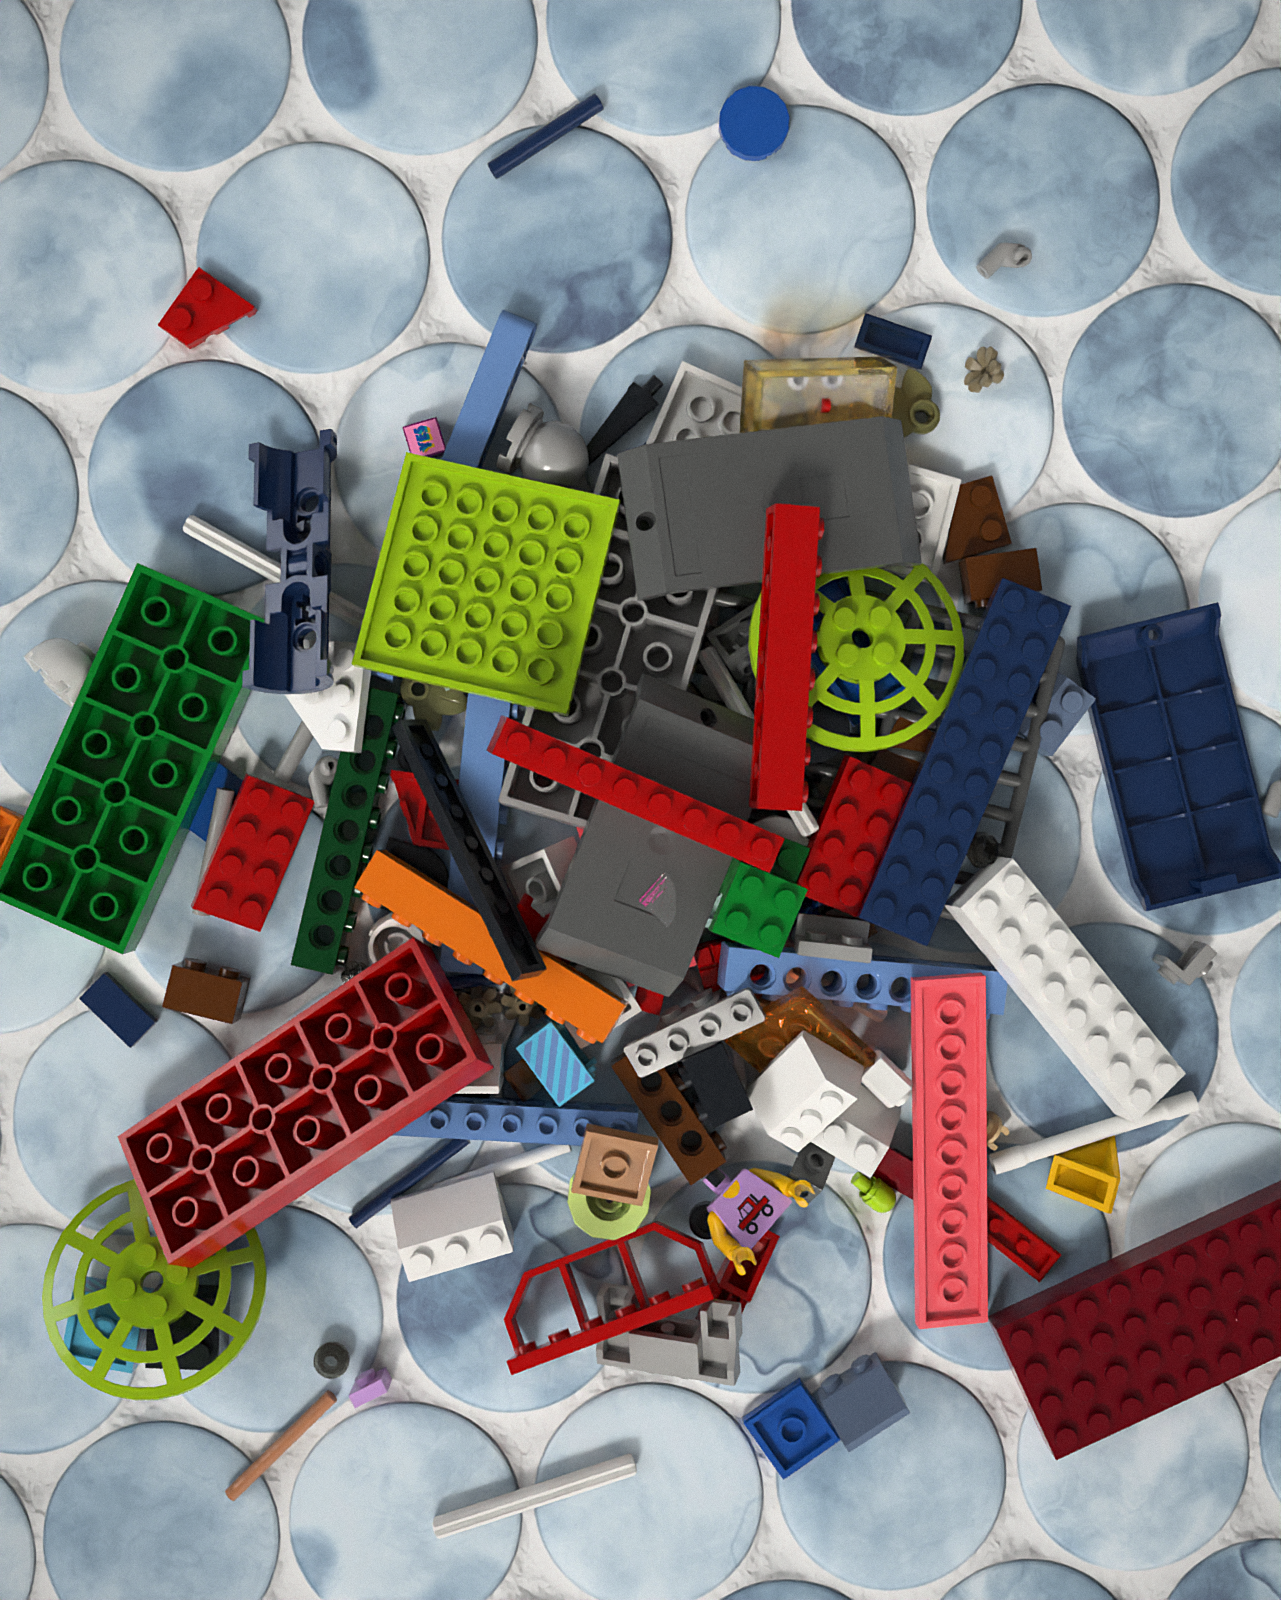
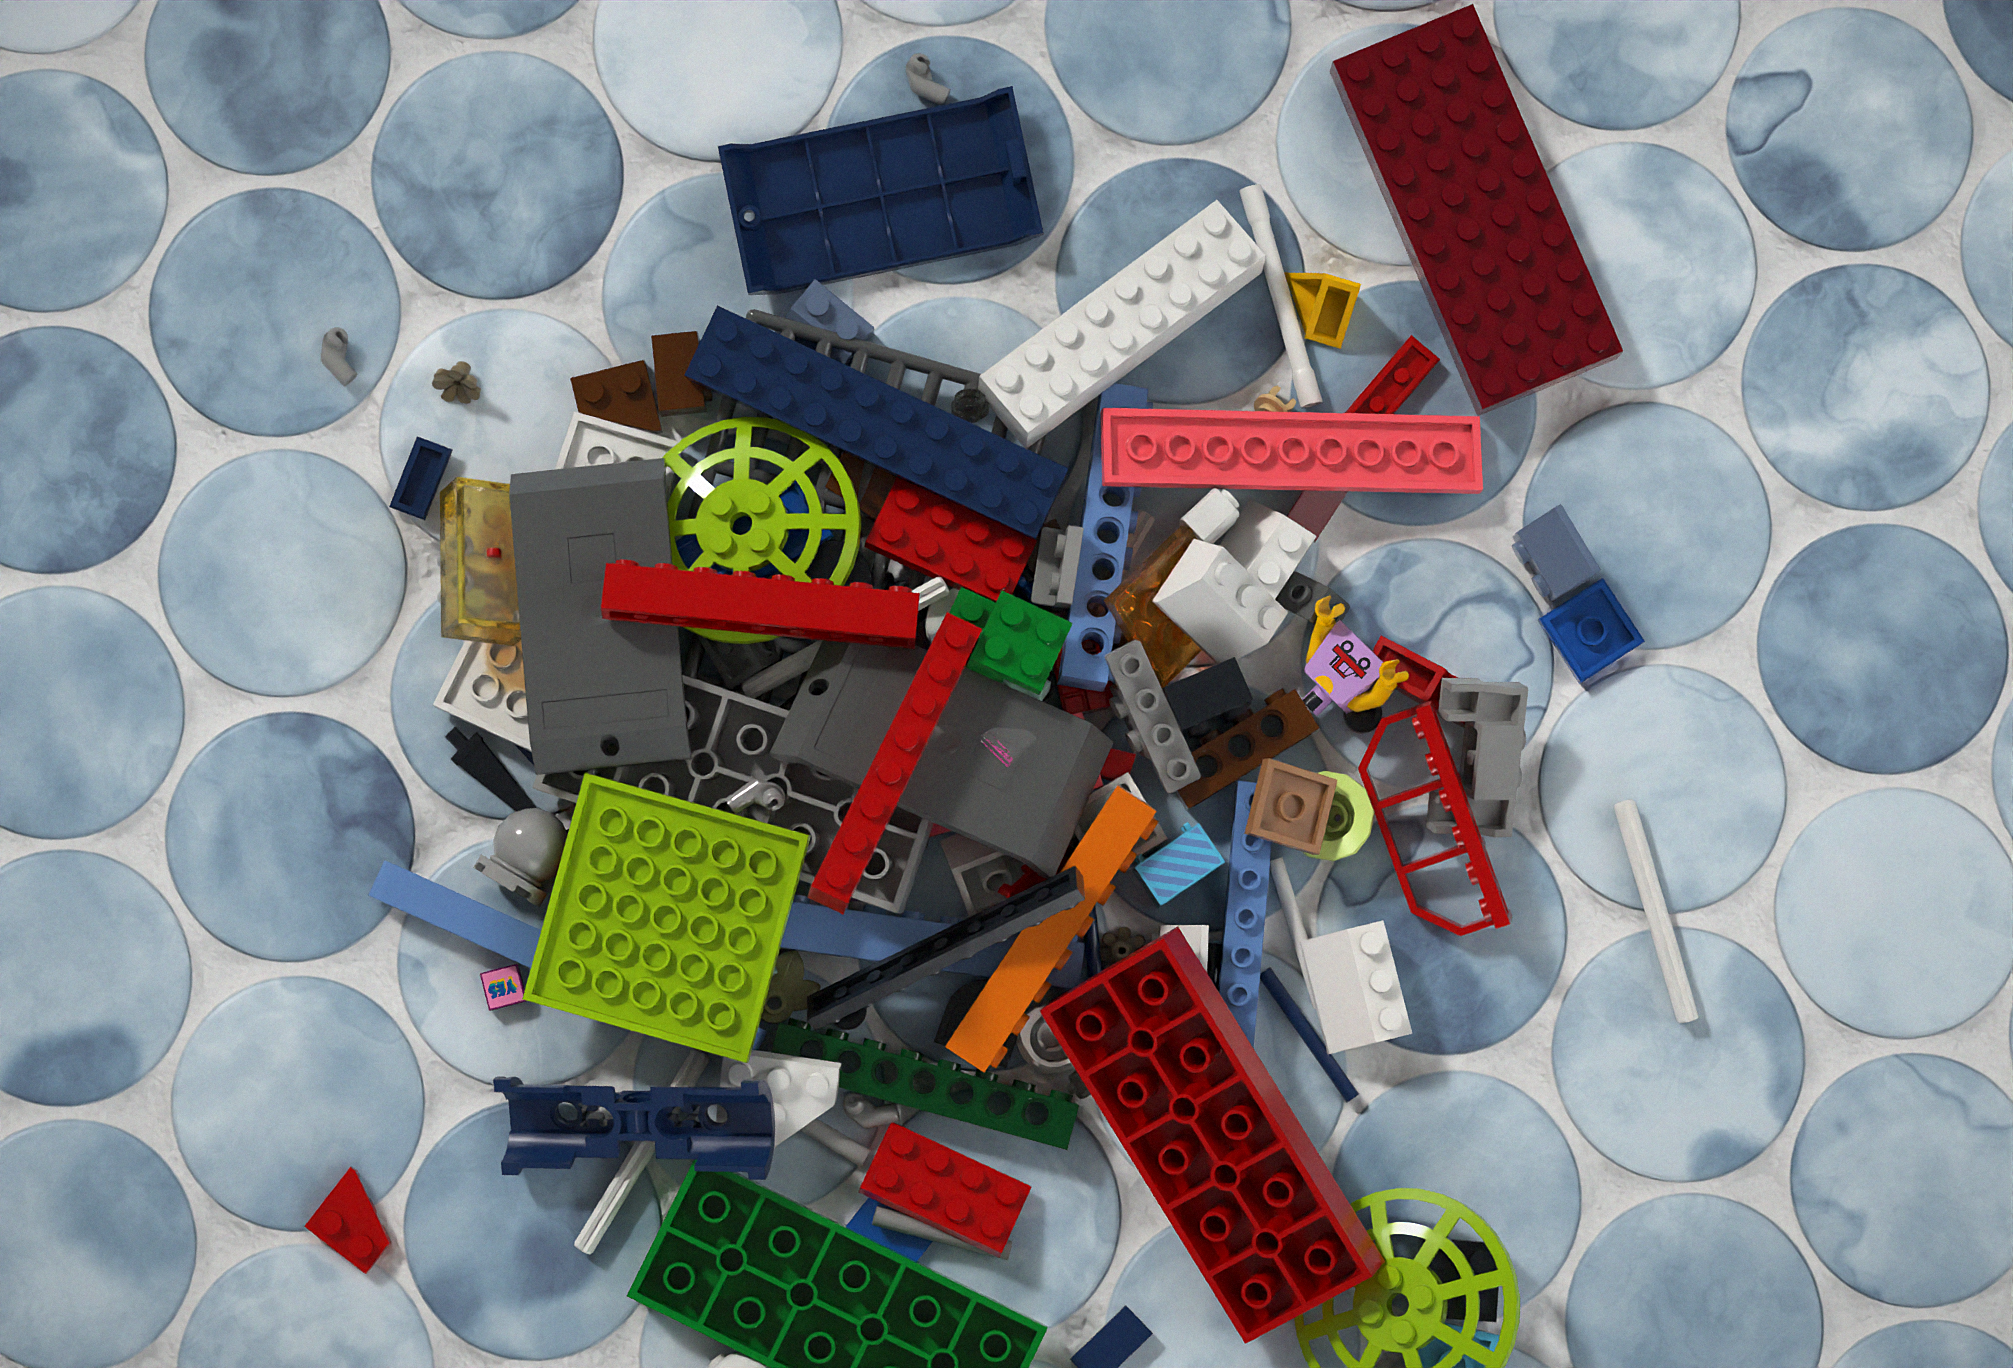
camera: 90 degrees left, 5 degrees down
(206, 991) = (1093, 1246): reddish brown brick -> none
(289, 1437) = (1594, 1186): nougat bar -> none
(335, 1350) = (1492, 1135): clear smoke plate -> none
(369, 1386) = (1528, 1084): lavender plate -> none
(420, 820) = (914, 1004): red wing -> none
(516, 1010) = (1117, 912): dark tan plant -> none
(522, 1080) = (1200, 902): reddish brown tile -> none
(545, 136) = (180, 844): dark blue piece -> none
(606, 665) = (757, 792): none -> light grey arm
(754, 123) = (178, 618): blue tile -> none
(875, 1192) = (1338, 531): lime cylinder -> none
(912, 398) = (482, 459): olive plate -> none
(1192, 964) = (1102, 183): light grey bracket -> none

